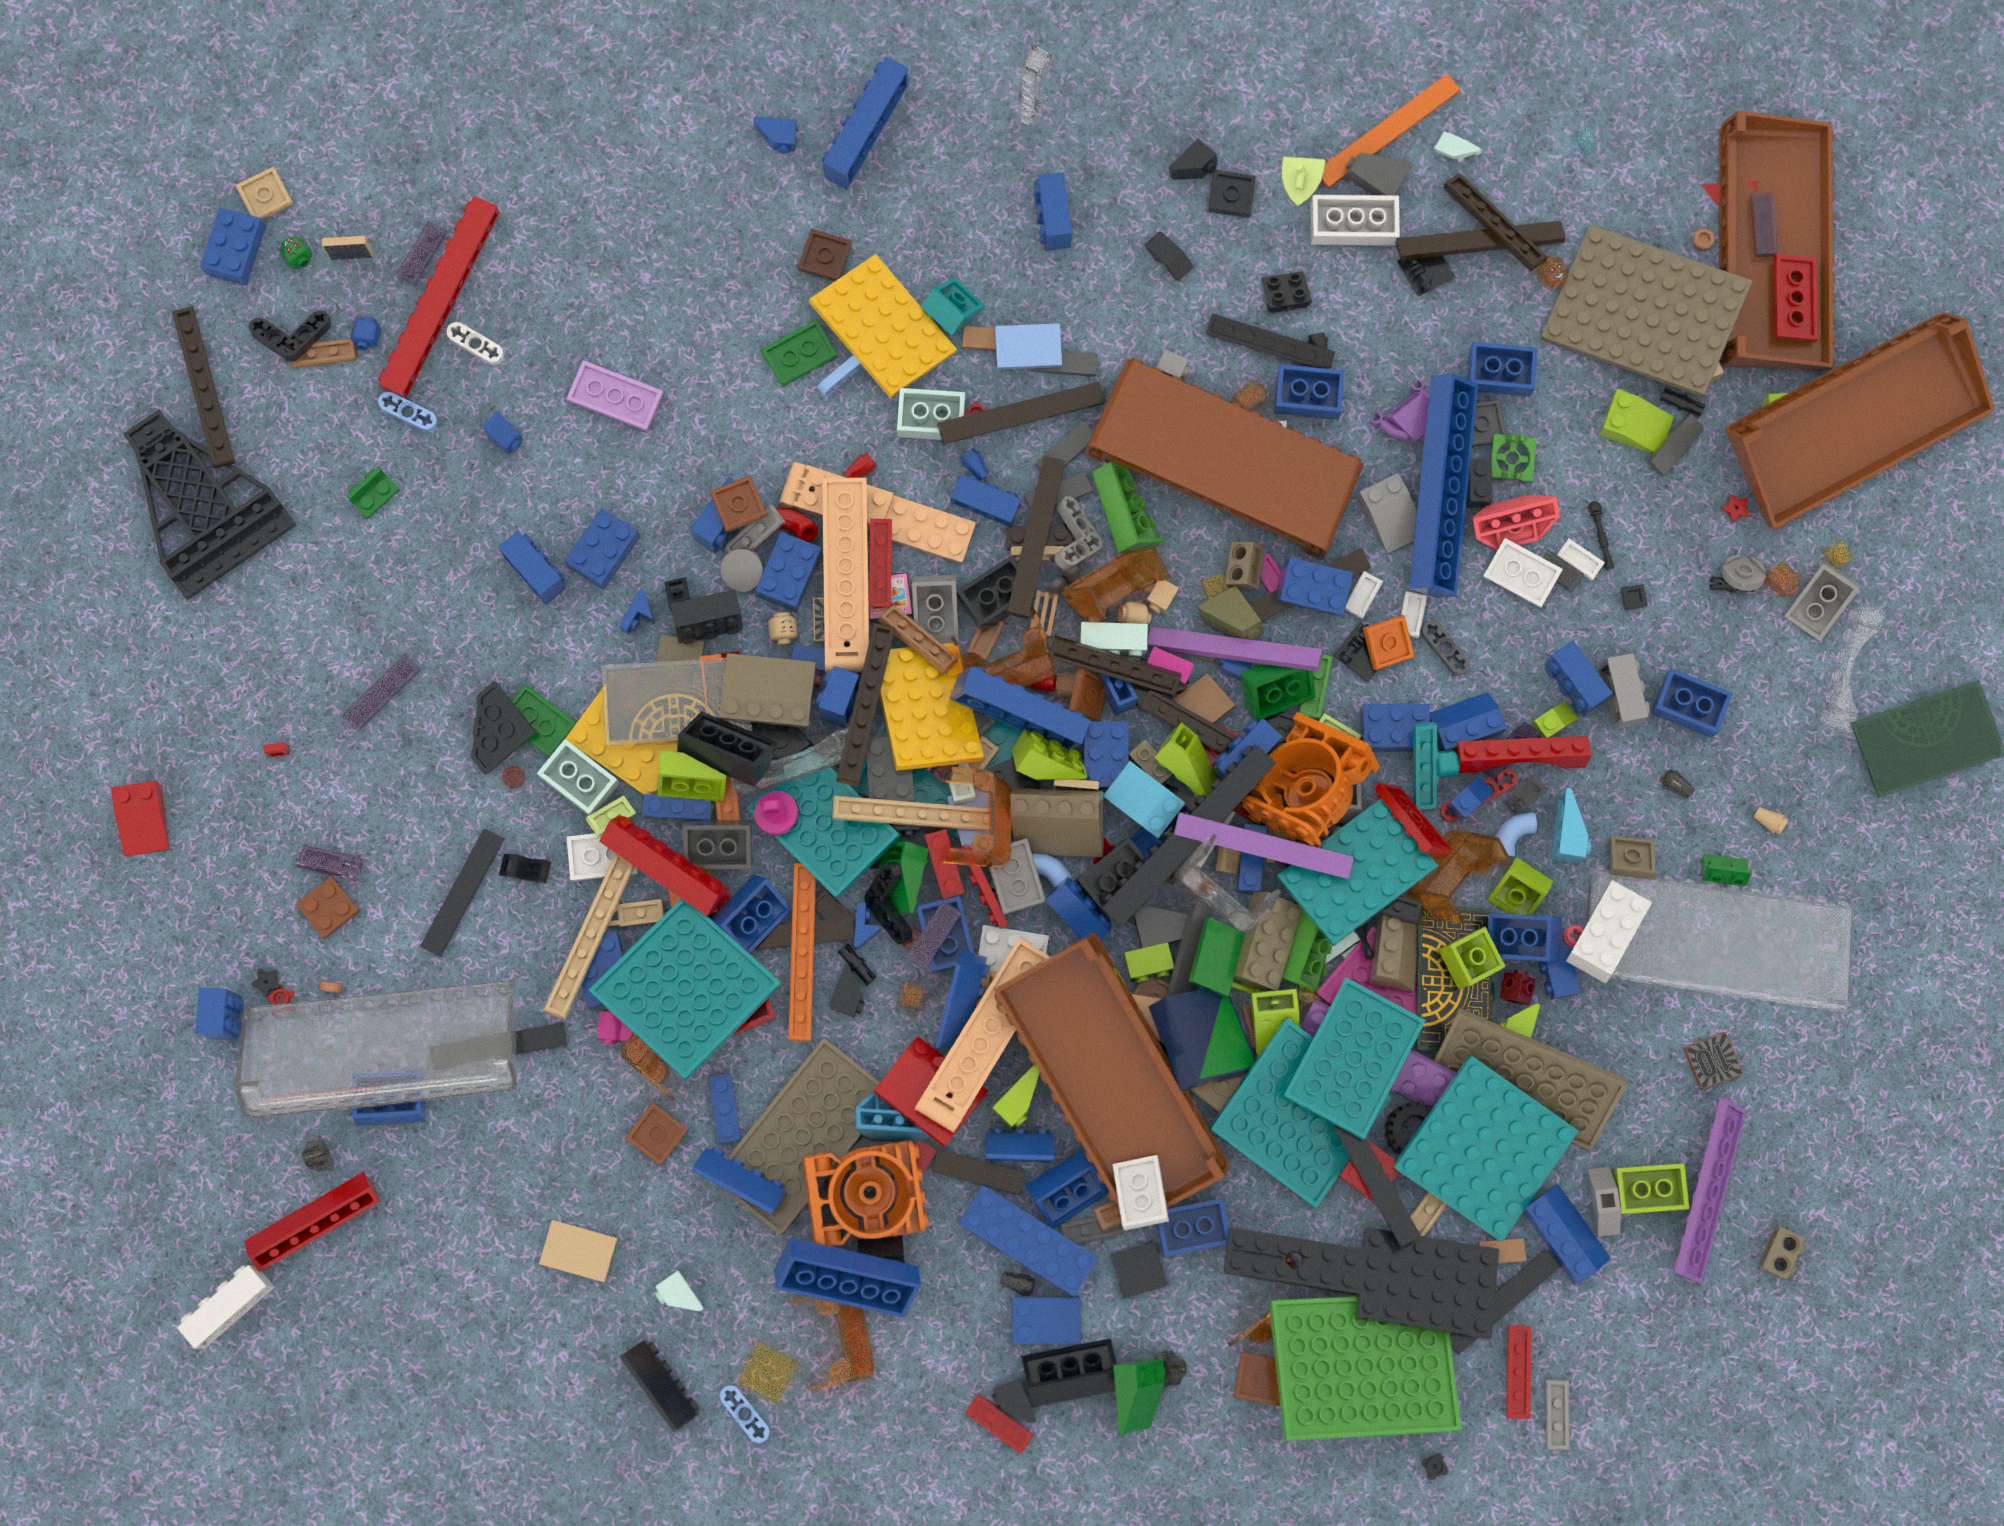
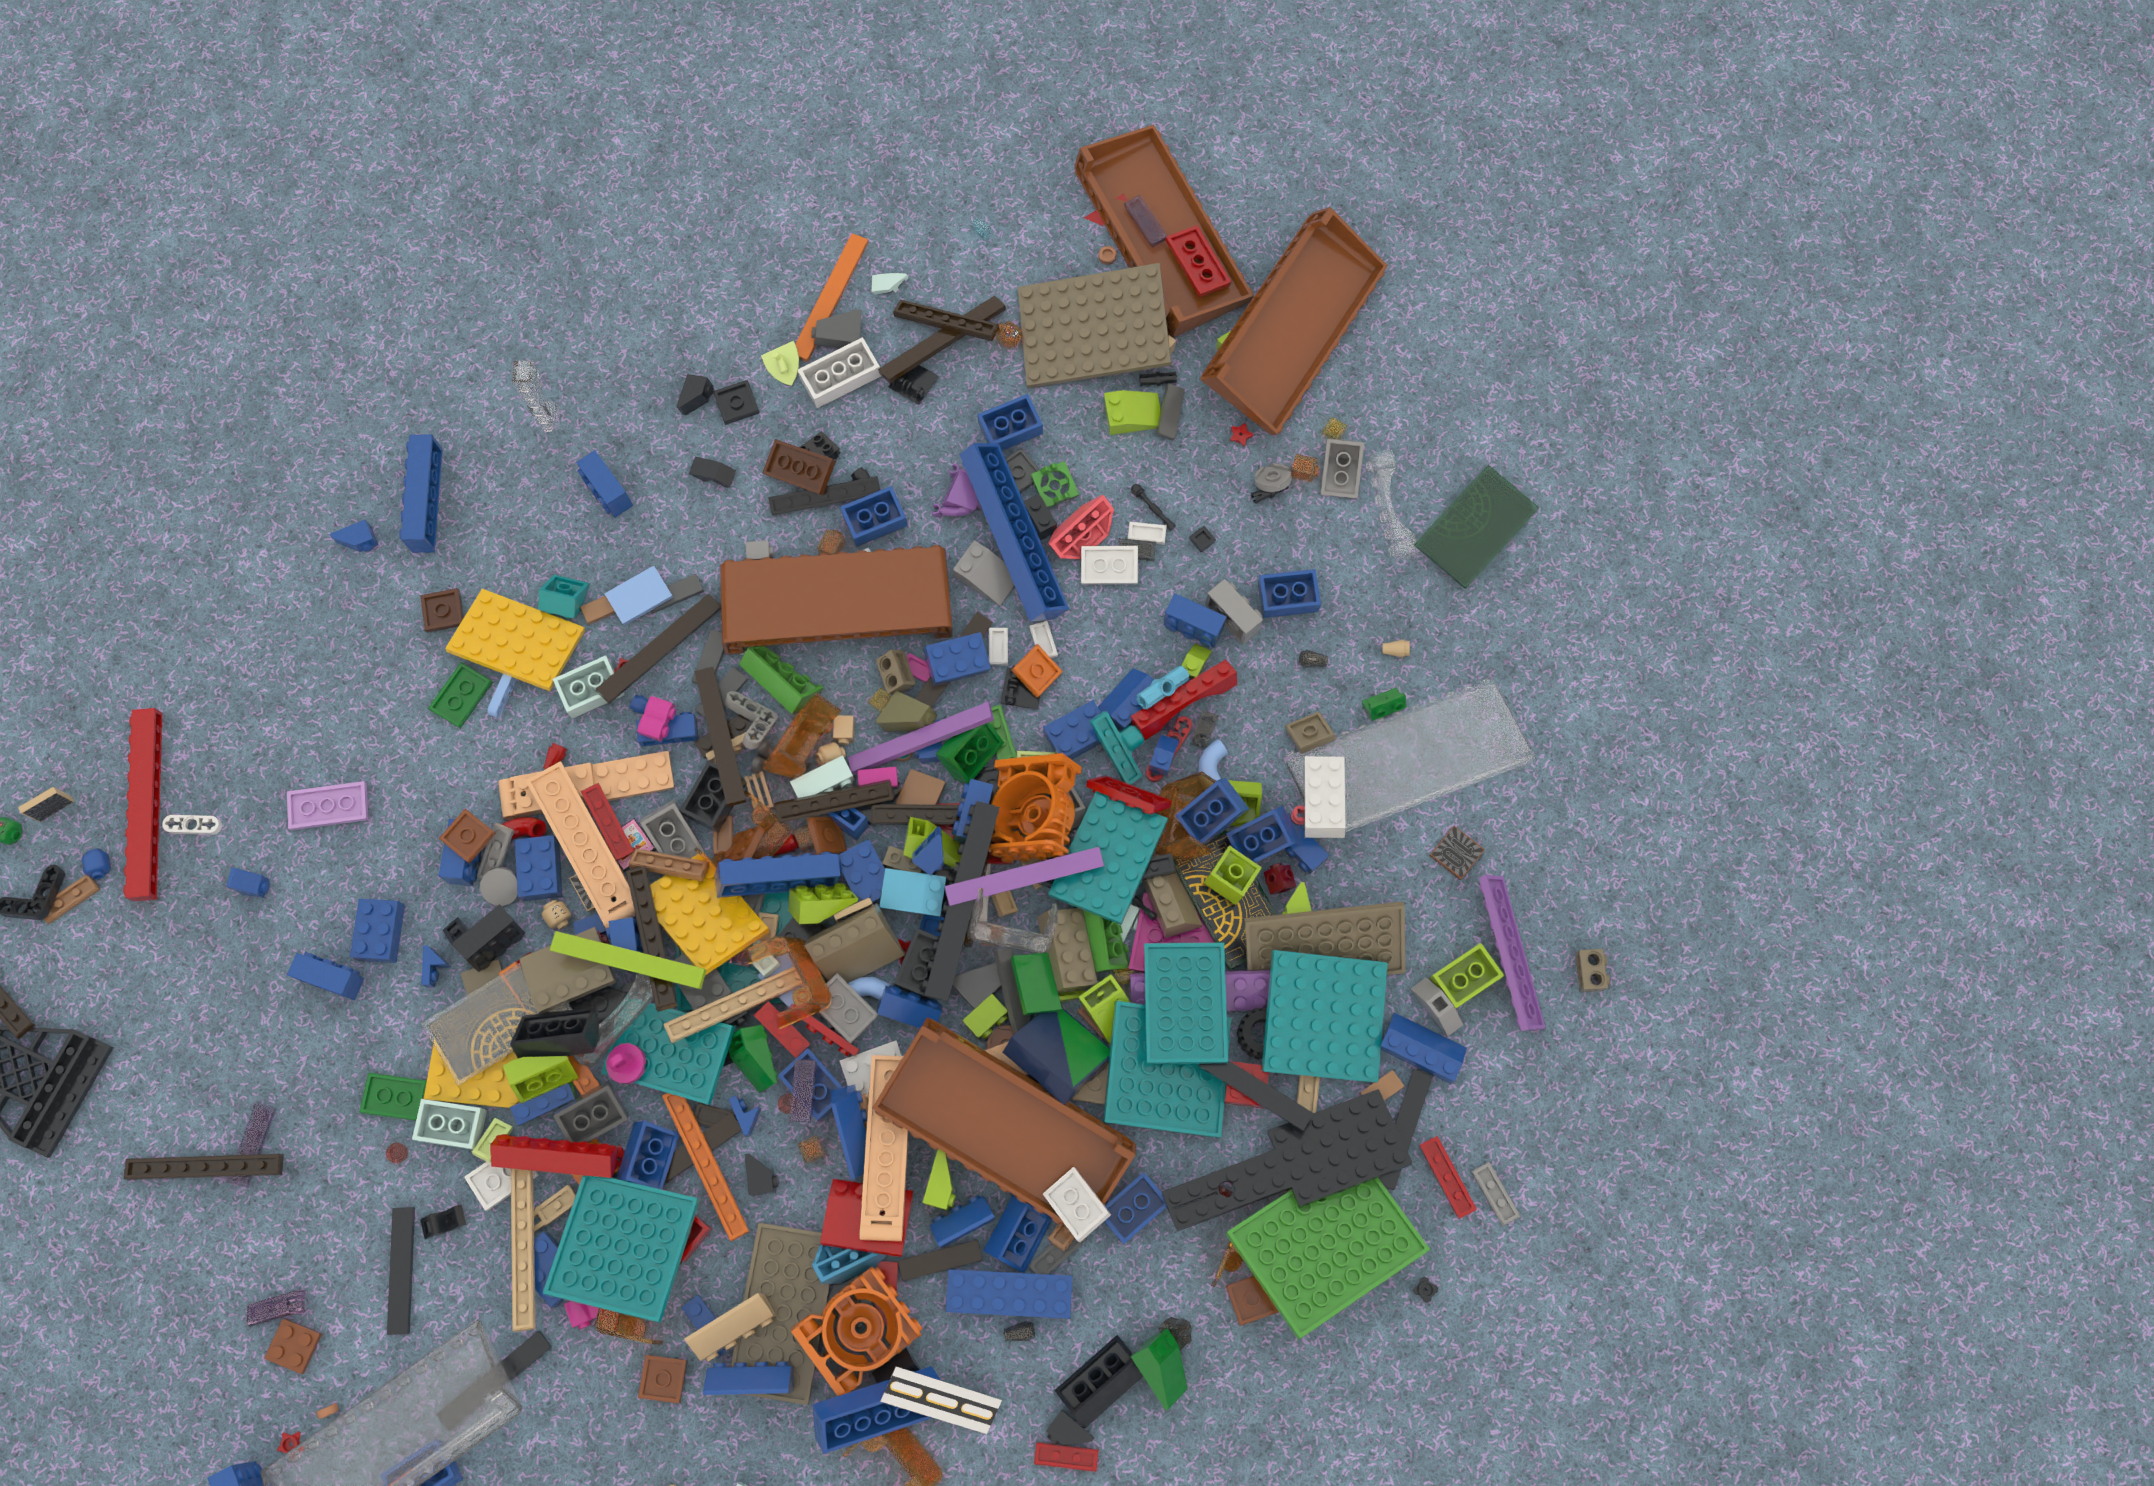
camera: 25 degrees left, 5 degrees down
(140, 817) = (95, 1359): red slope -> none
(266, 987) = (276, 1437): black plate -> none
(276, 749) = (184, 1239): red tile -> none
(327, 689) = (203, 1166): none -> dark brown tile
(372, 492) = (164, 987): green bracket -> none
(421, 253) = (112, 777): clear purple plate -> none
(424, 413) = (155, 903): light blue beam -> none
(497, 728) = (362, 1121): black plate -> none
(748, 1121) = (730, 1327): none -> tan slope
(833, 715) = (628, 960): none -> lime tile
(857, 964) = (755, 1148): black pin -> none
(897, 926) = (746, 1089): black beam -> none
(910, 1303) = (941, 1400): none -> sticker
(982, 485) = (656, 718): none -> dark pink brick
(1002, 660) = (744, 843): none -> dark orange plate
(1046, 1320) = (1058, 1350): blue slope -> none
(1139, 1270) = (1110, 1266): black tile -> none
(1182, 770) = (930, 853): none -> blue slope
(1250, 867) = (1024, 899): blue brick -> none
(1260, 299) = (799, 467): none -> reddish brown plate
(1447, 639) = (1067, 652): dark grey beam -> none
(1487, 883) = (1212, 811): none -> blue brick
(1517, 730) = (1156, 691): none -> medium azure piece
(1570, 833) = (1253, 738): medium azure slope -> none

